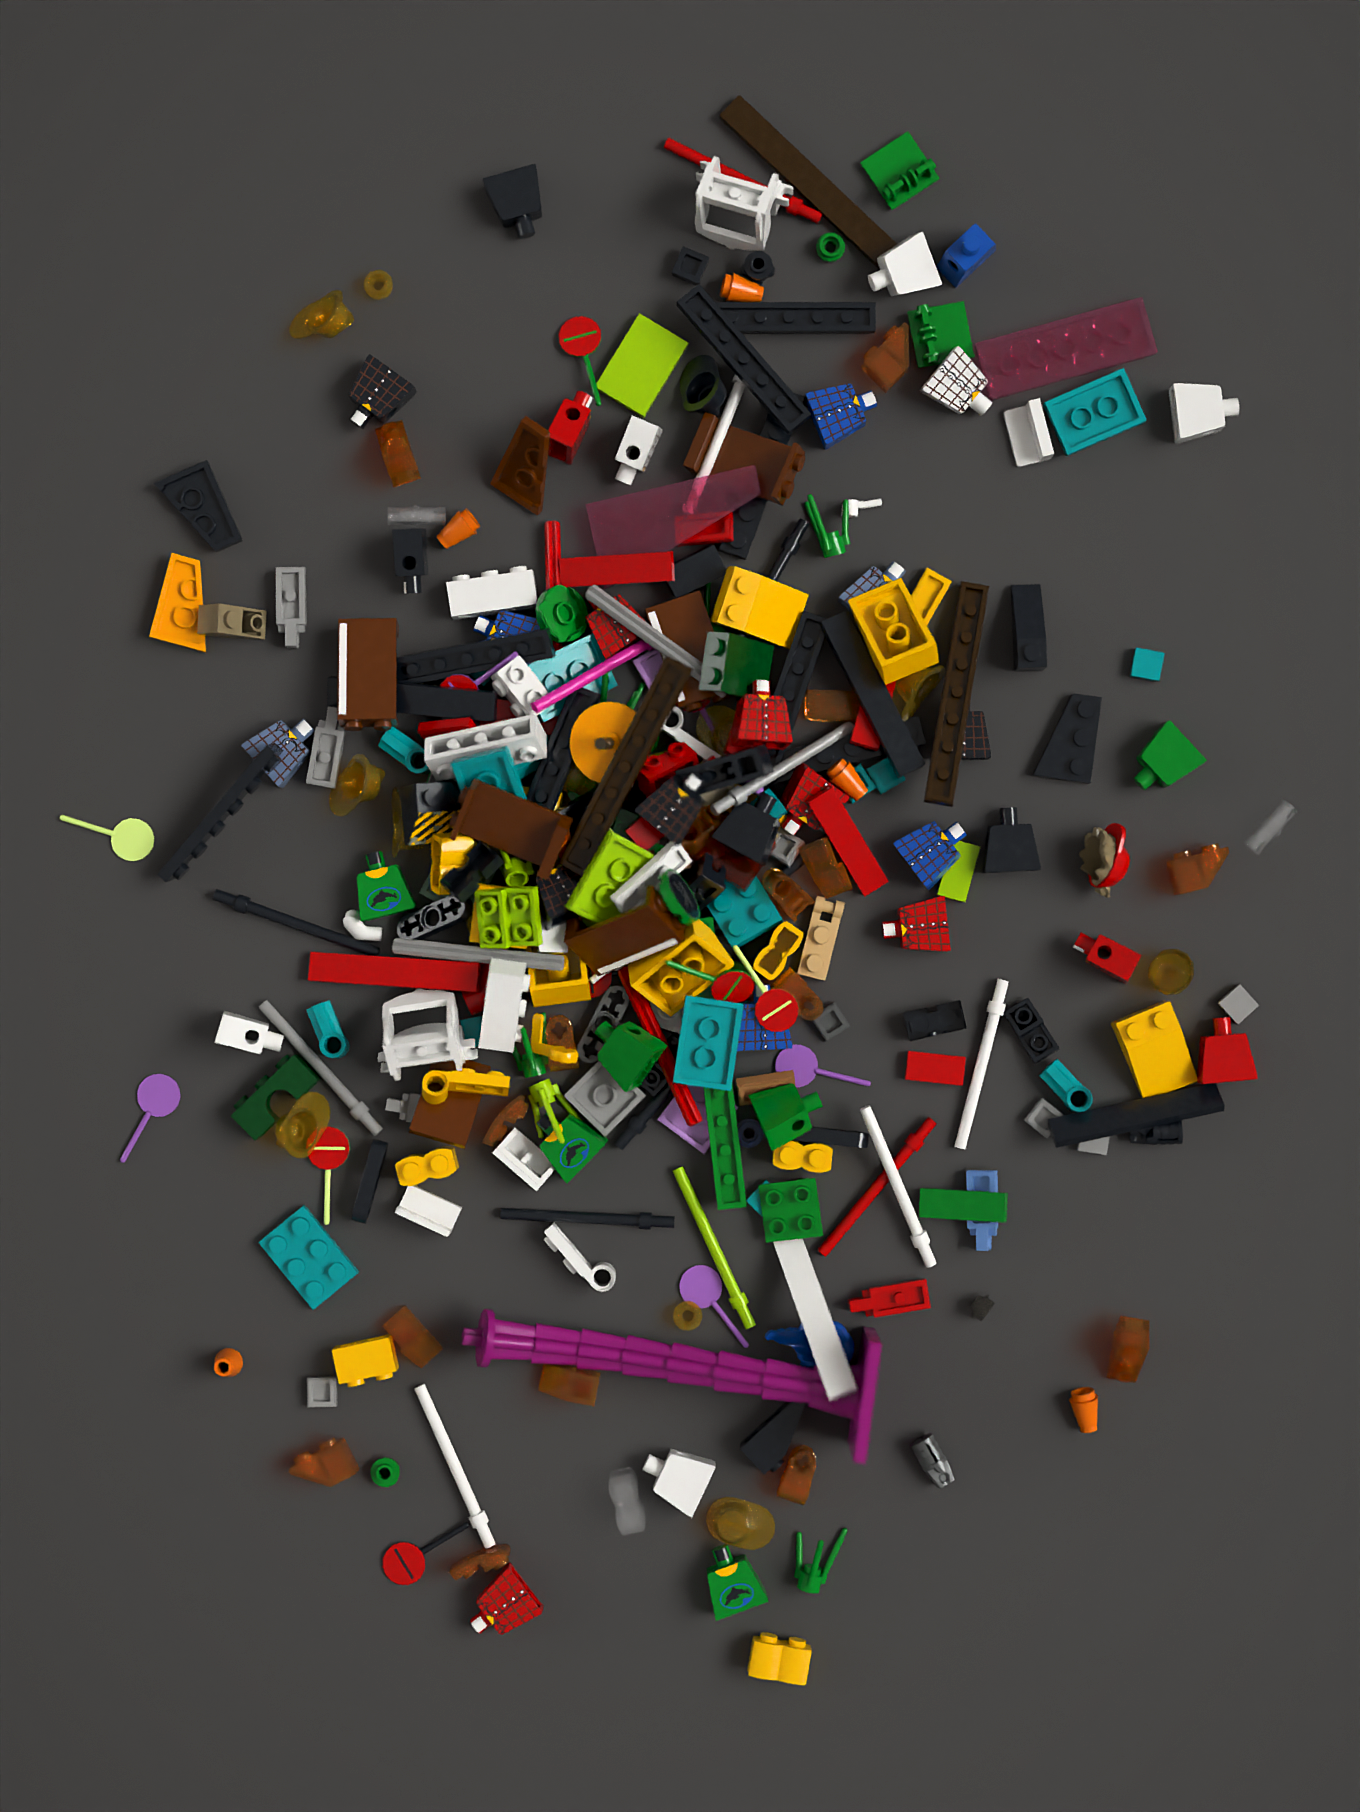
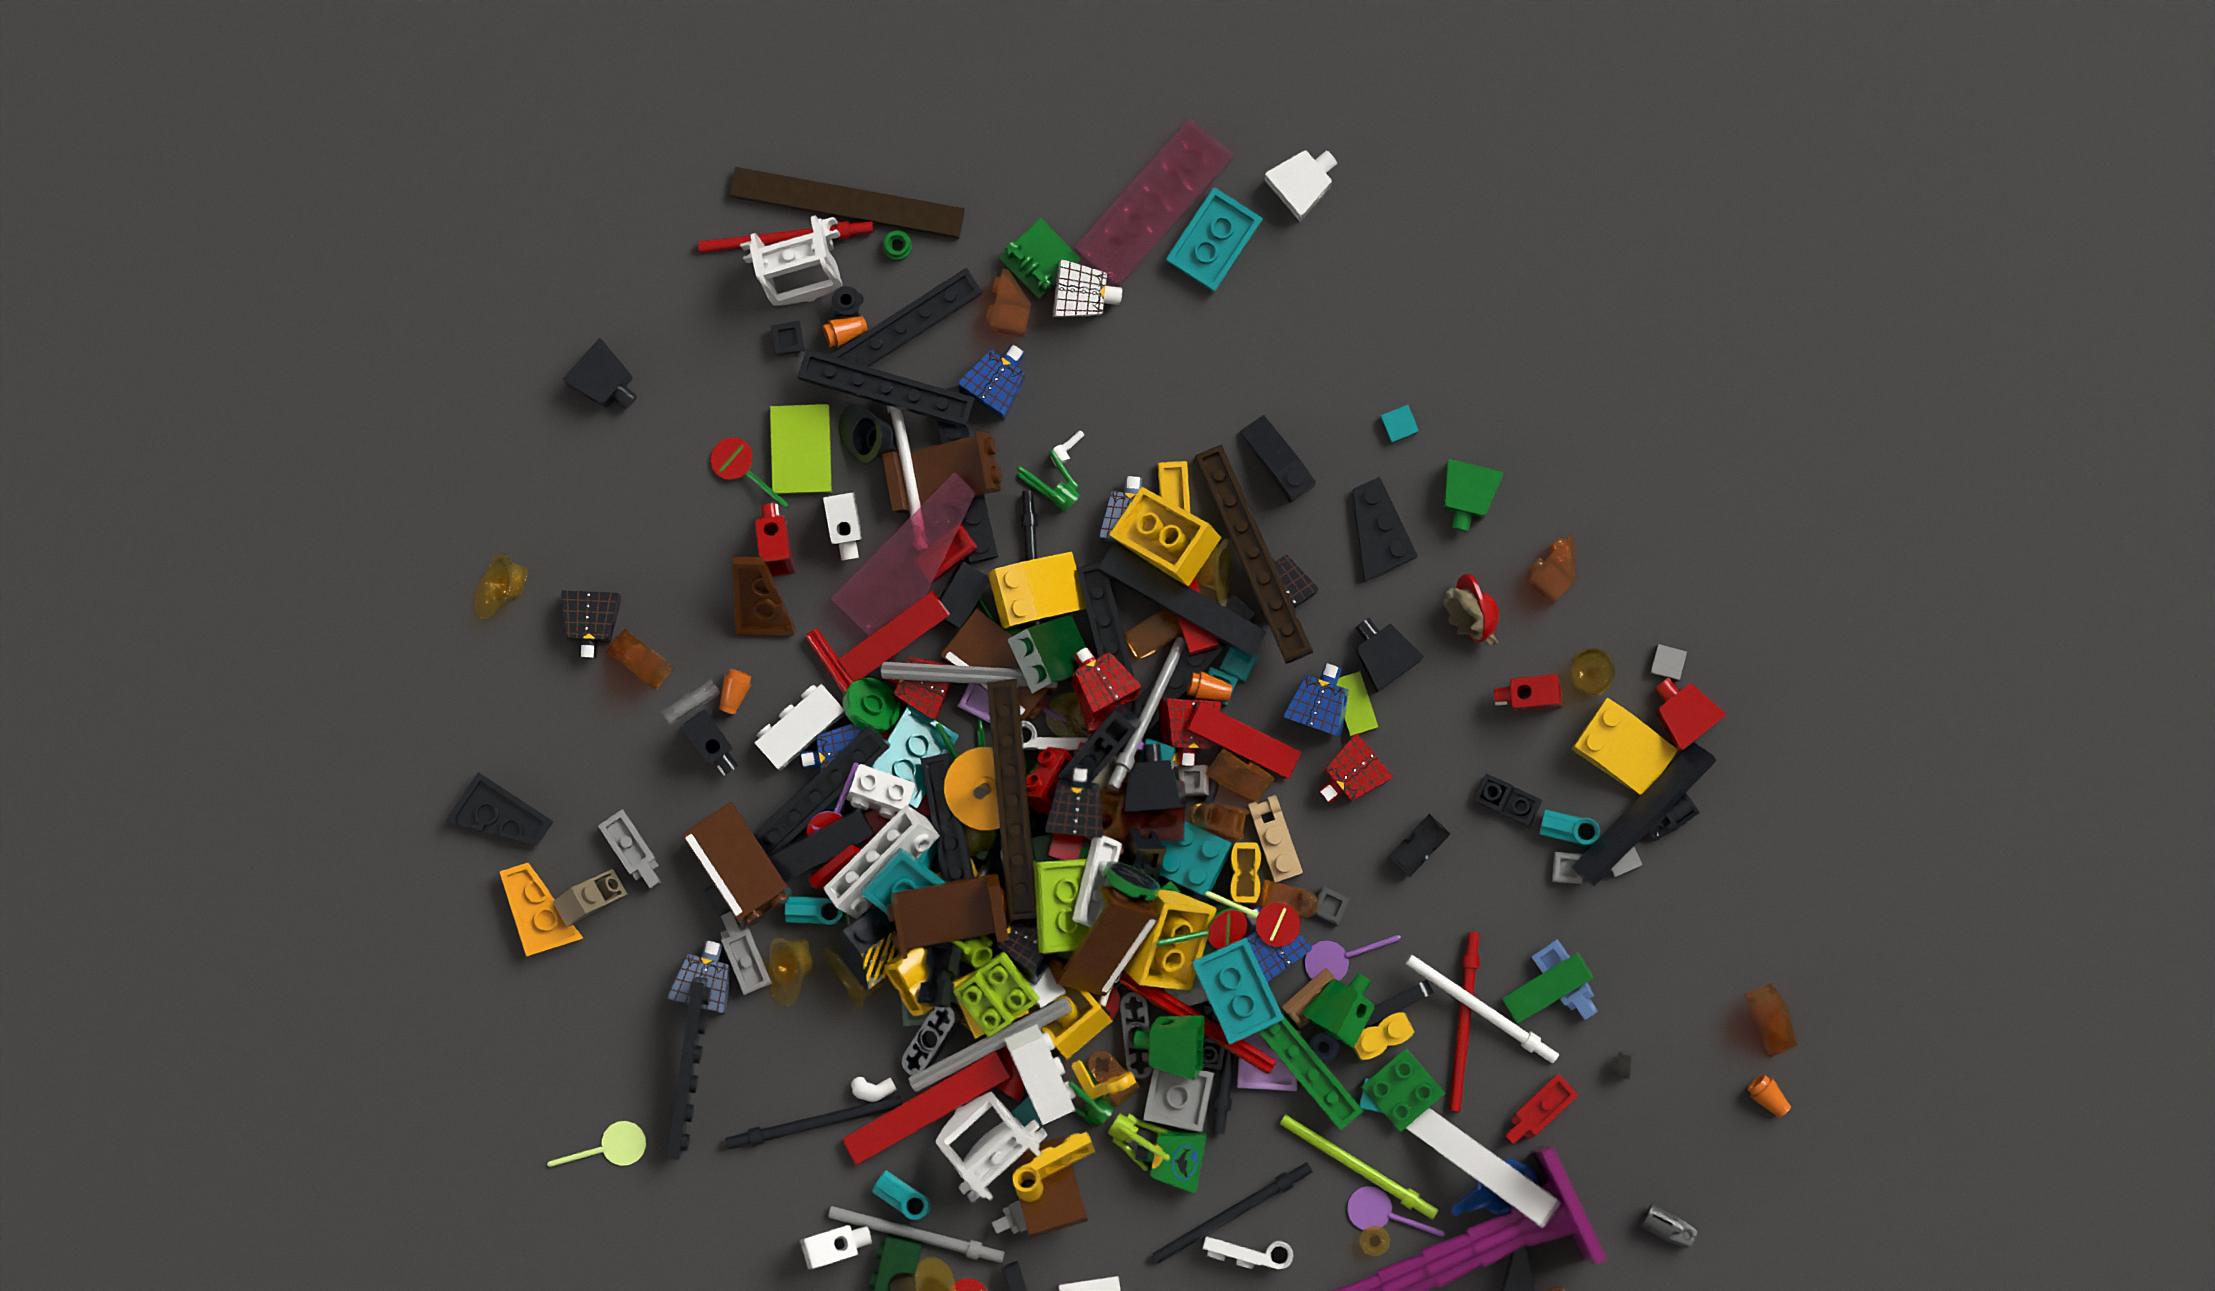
camera: 30 degrees left, 5 degrees down
(372, 278) = (525, 518): clear yellow plate -> none
(382, 889) = (870, 1043): green torso -> none
(418, 1167) = (1070, 1252): yellow brick -> none
(515, 1109) = (1108, 1160): clear orange slope -> none
(524, 1158) = (1145, 1196): white hinge -> none
(590, 675) = (931, 742): dark pink bar -> none
(900, 170) = (914, 142): green hinge -> none
(906, 267) = (974, 222): white torso -> none
(935, 1068) = (1446, 886): red tile -> none
(967, 254) = (1017, 178): blue torso -> none
(995, 1009) = (1464, 801): white bar -> none
(1028, 433) = (1170, 294): white panel -> none
(1271, 827) = (1596, 493): clear pin -> none

